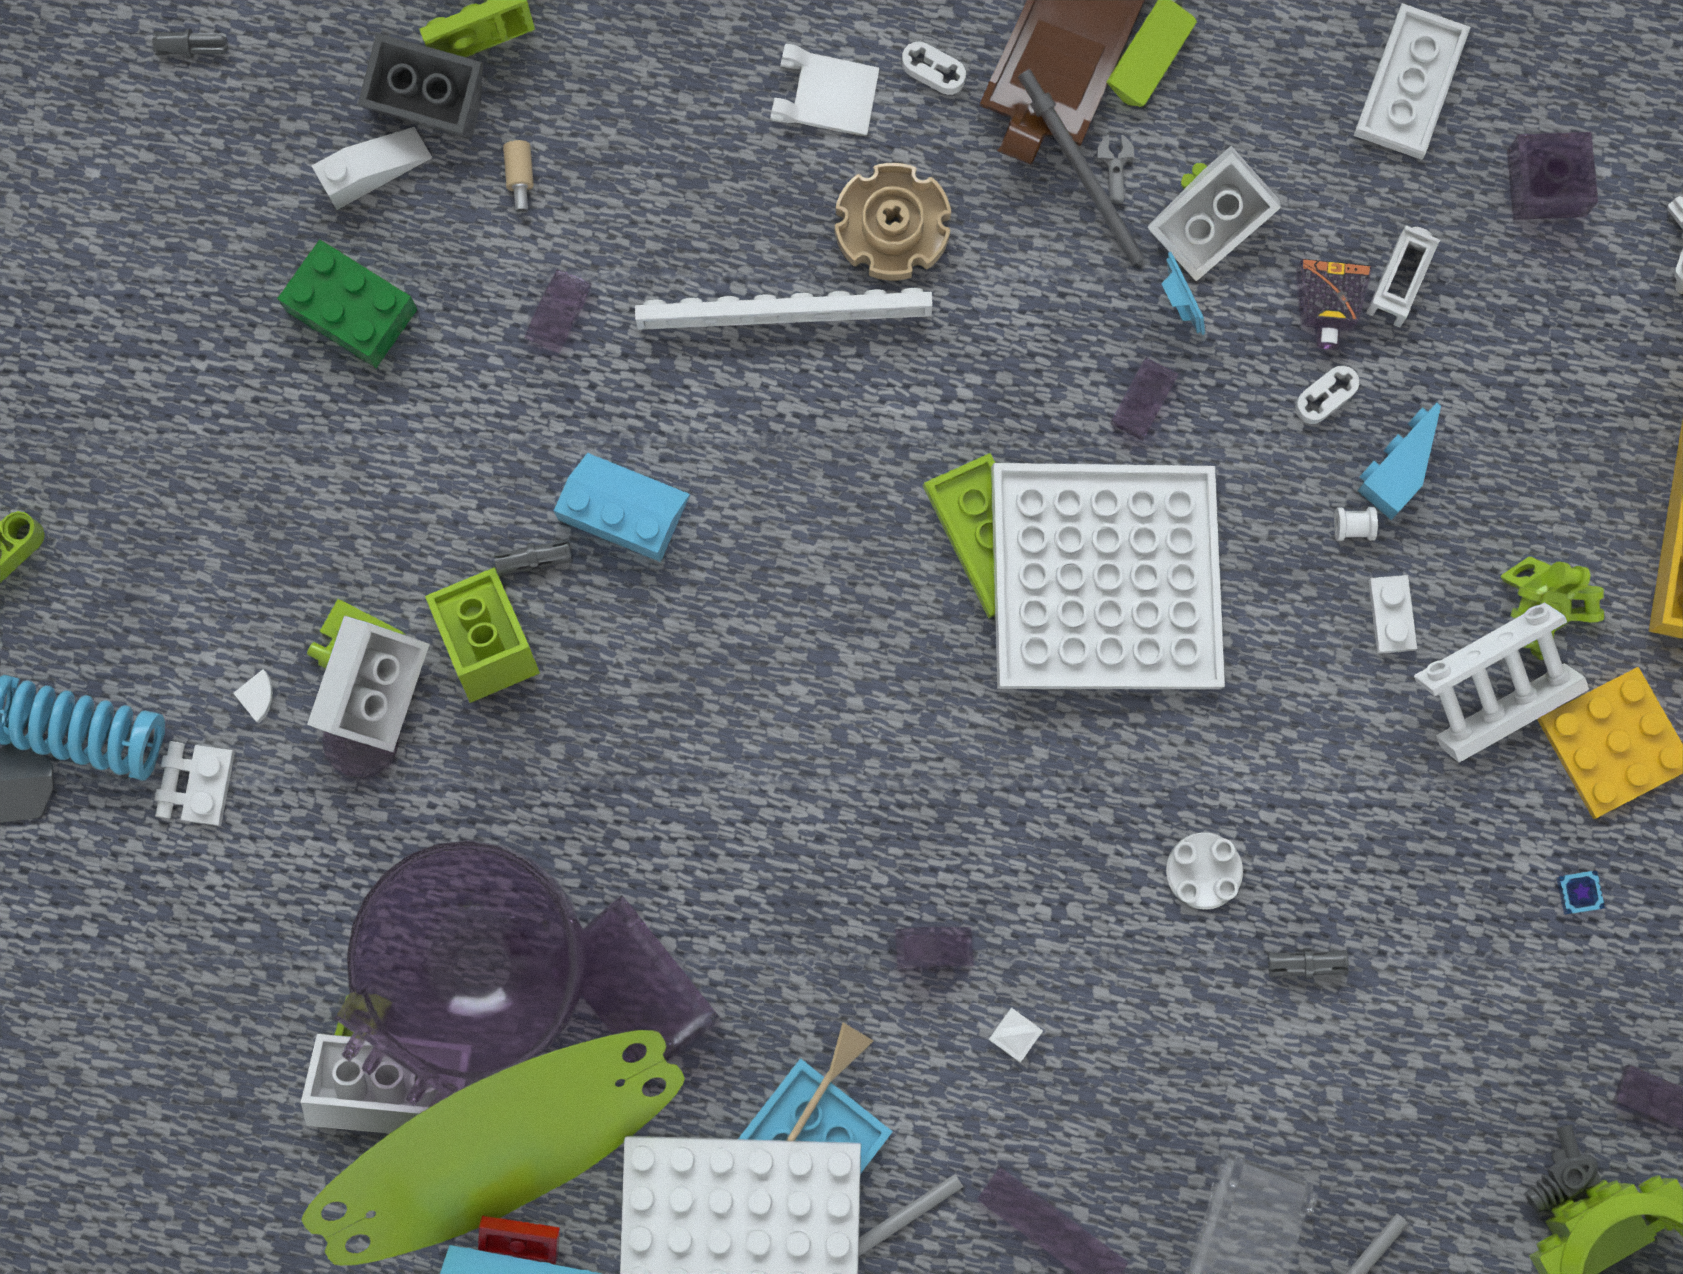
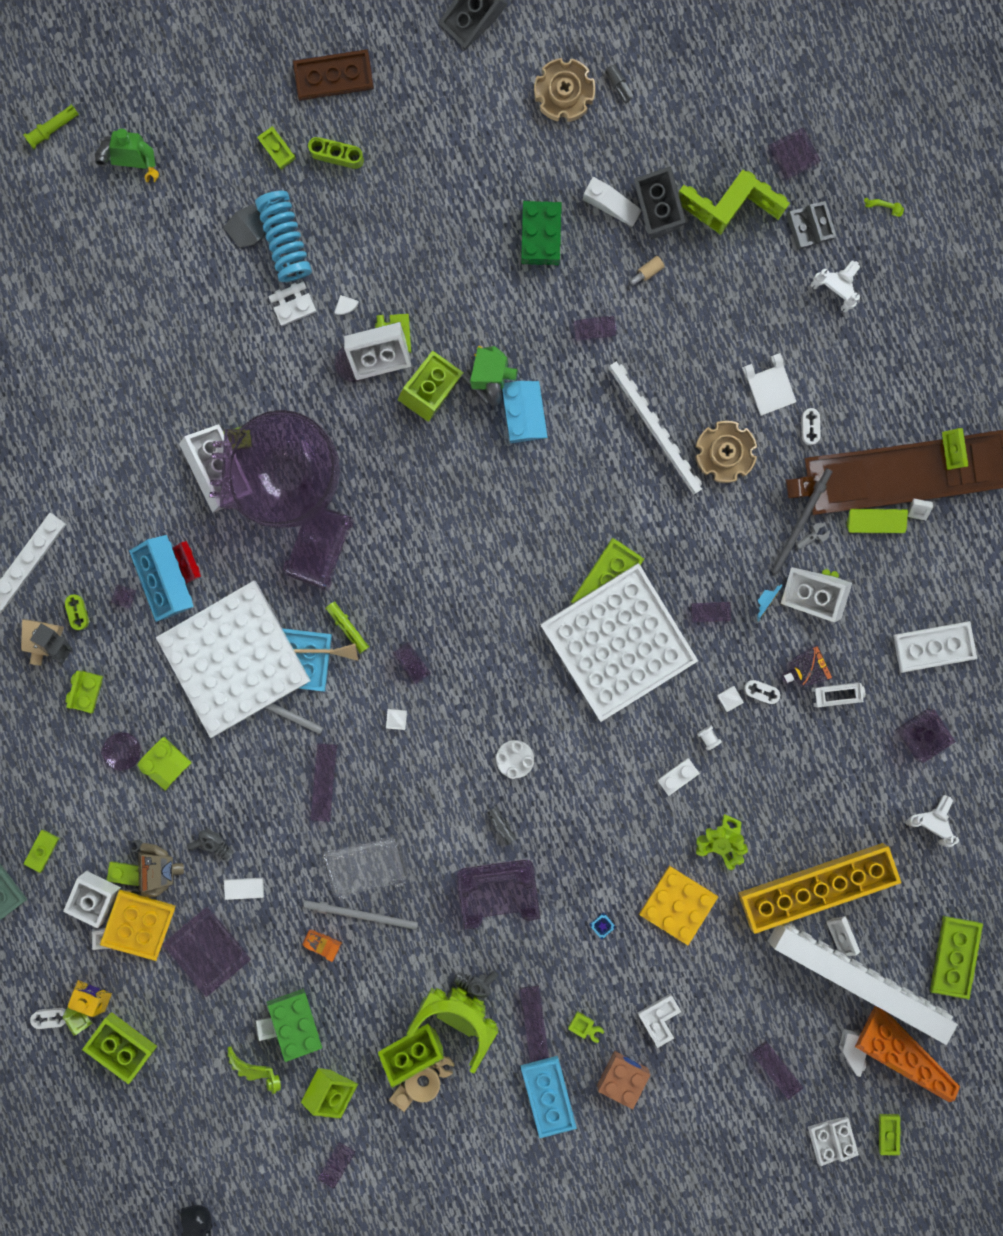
camera: 55 degrees right, 10 degrees up
(159, 151) = (558, 102): none -> tan piece
(493, 1147) = (214, 529): lime piece -> none
(525, 514) = (490, 372): none -> bright green torso
(803, 1024) = (343, 622): none -> lime pin
(1308, 453) = (730, 698): none -> white tile
(1404, 470) = (746, 745): medium azure slope -> none
(1421, 1034) = (497, 891): none -> clear purple windscreen
(1515, 710) = (665, 853): white fence -> none

